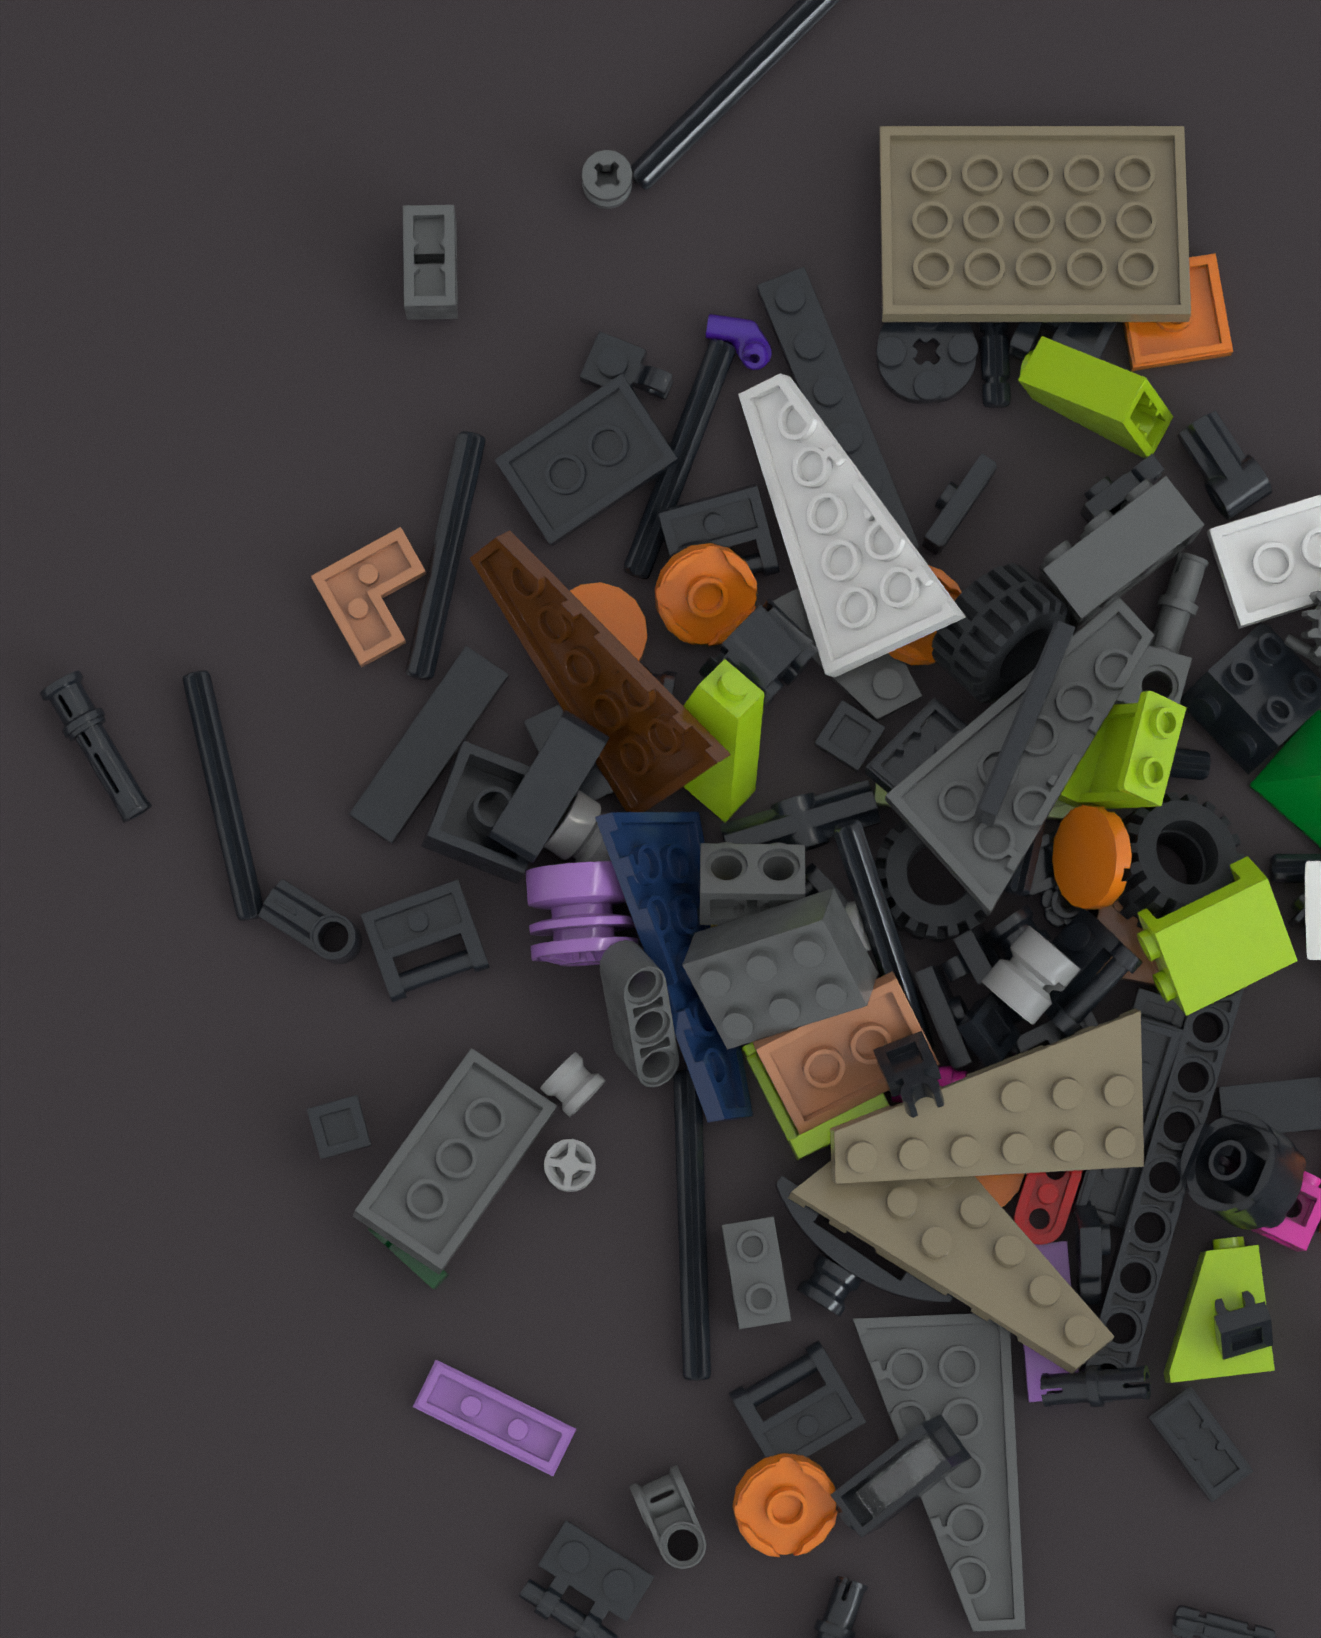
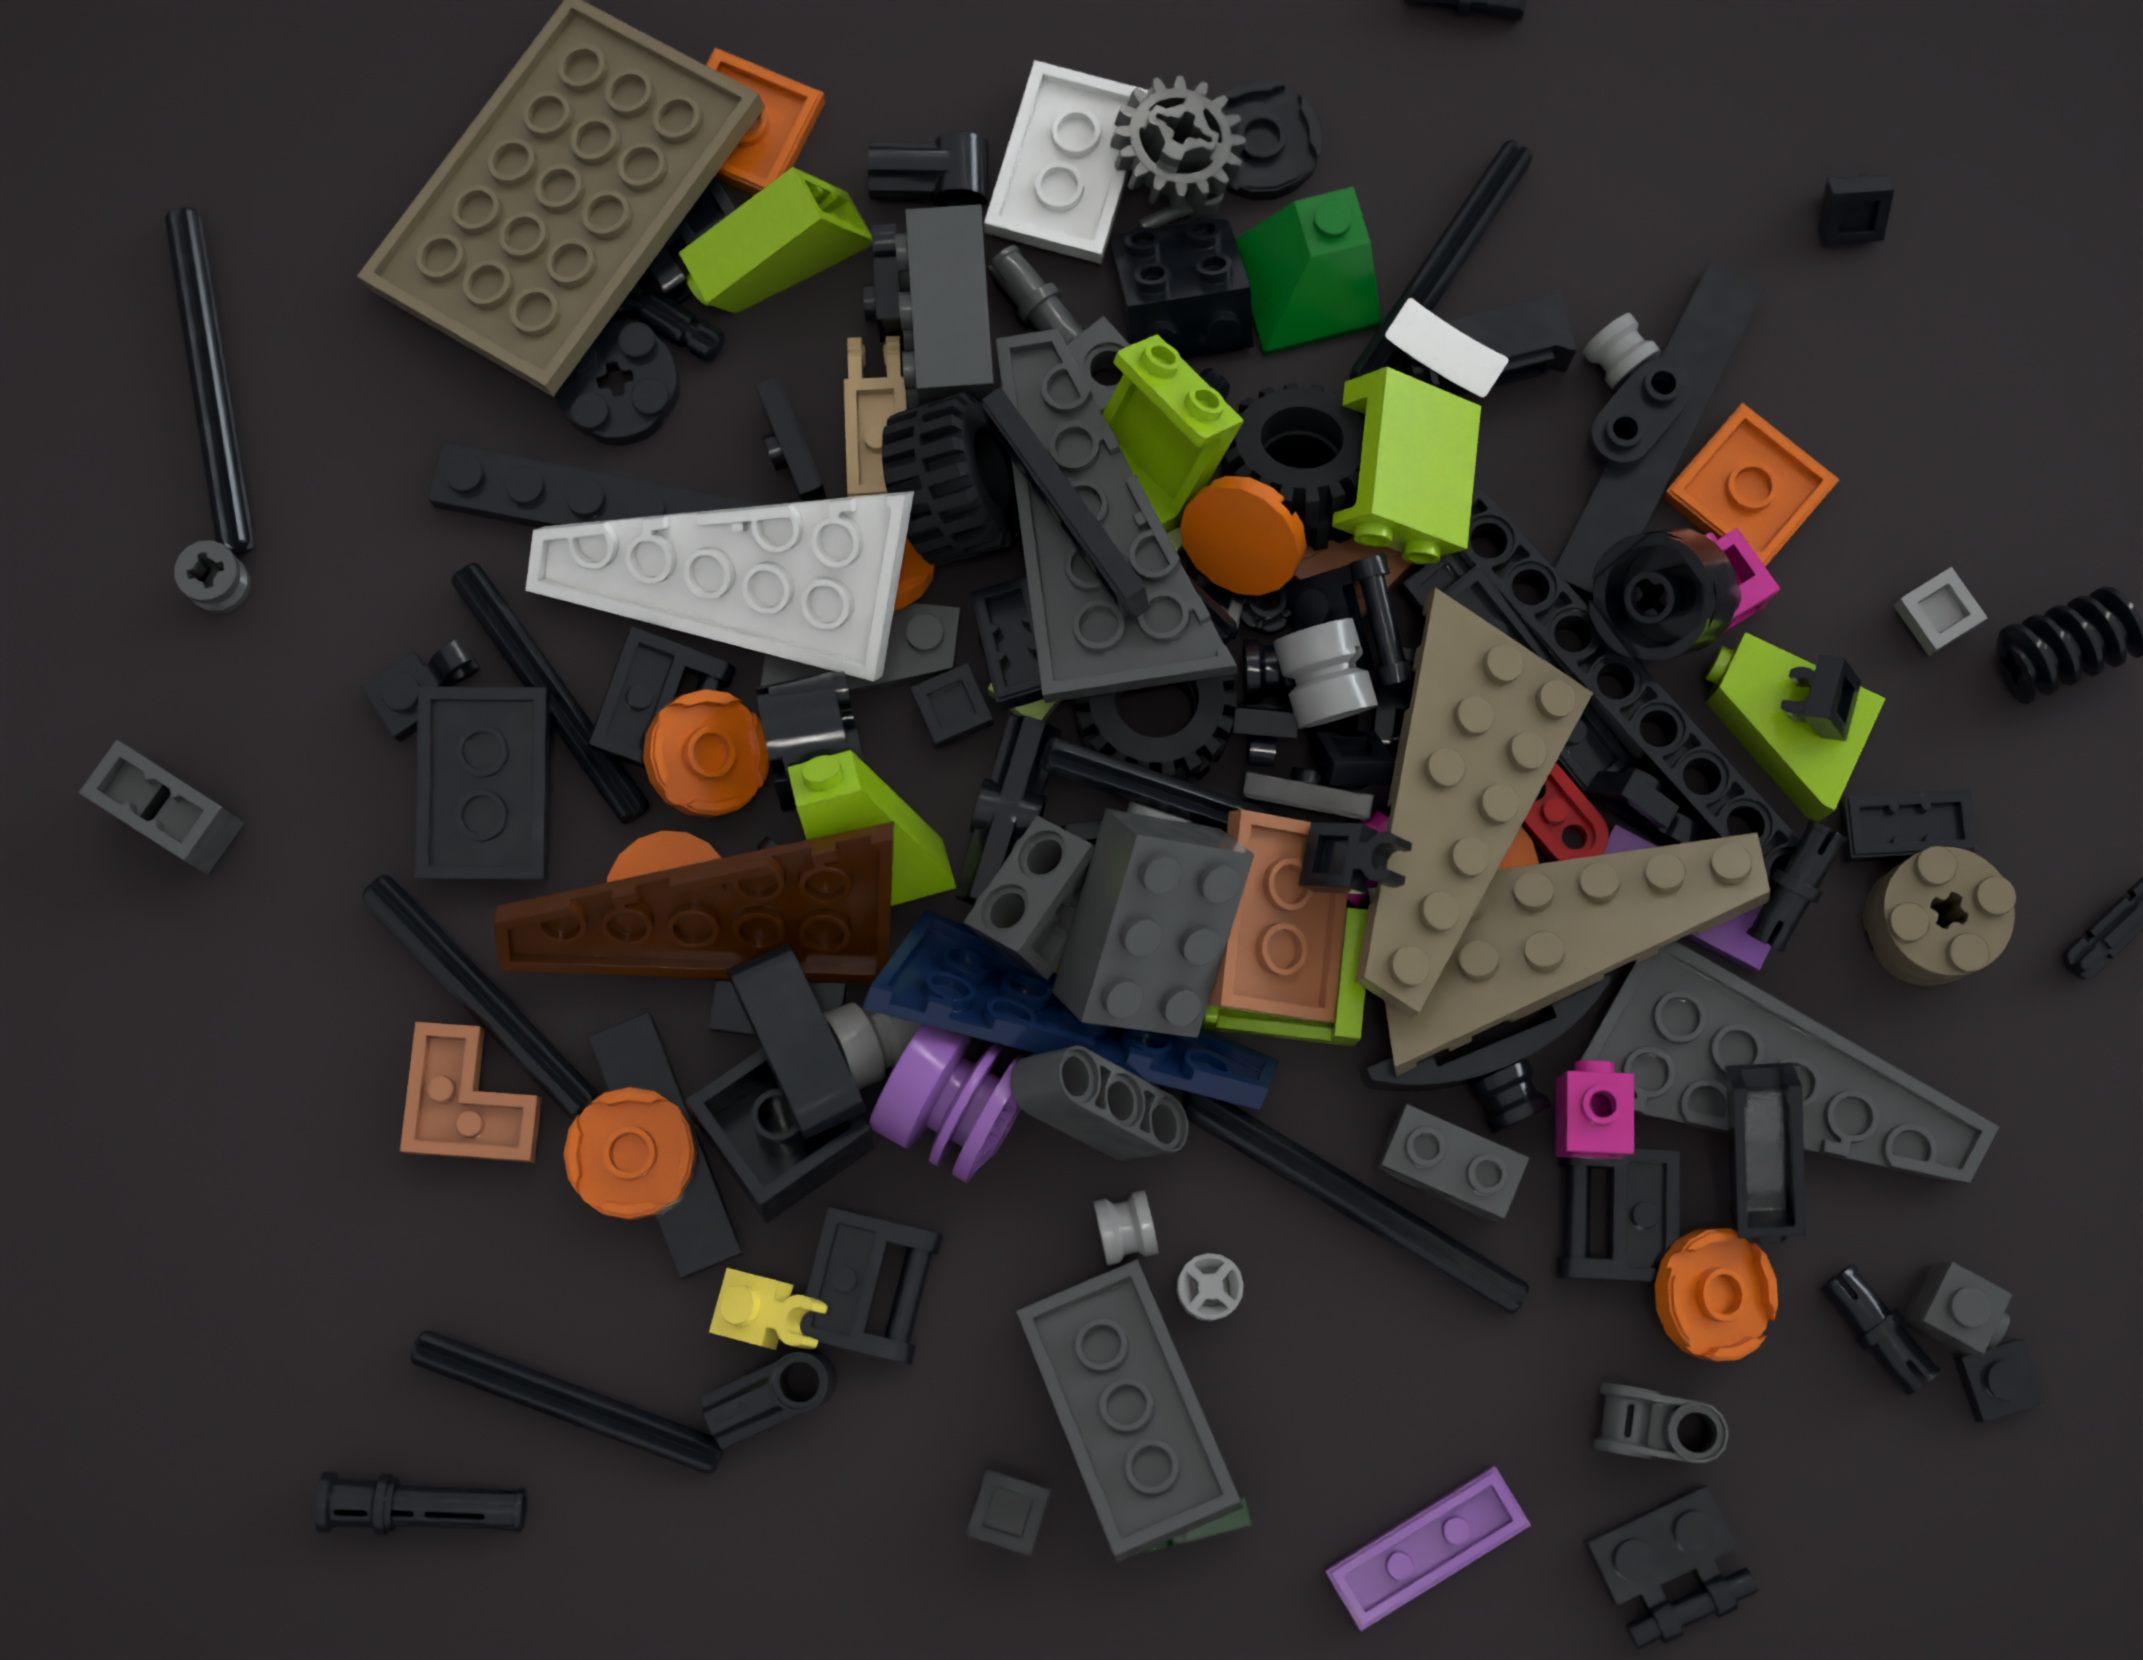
camera: 55 degrees left, 5 degrees down
(362, 882) = (762, 1311): none -> light yellow plate
(408, 727) = (630, 1153): none -> orange tile
(744, 335) = (471, 544): dark purple arm -> none
(851, 1345) = (1595, 1112): none -> dark pink brick
(1019, 542) = (867, 408): none -> tan hinge
(1169, 1520) = (1972, 903): none -> dark tan brick

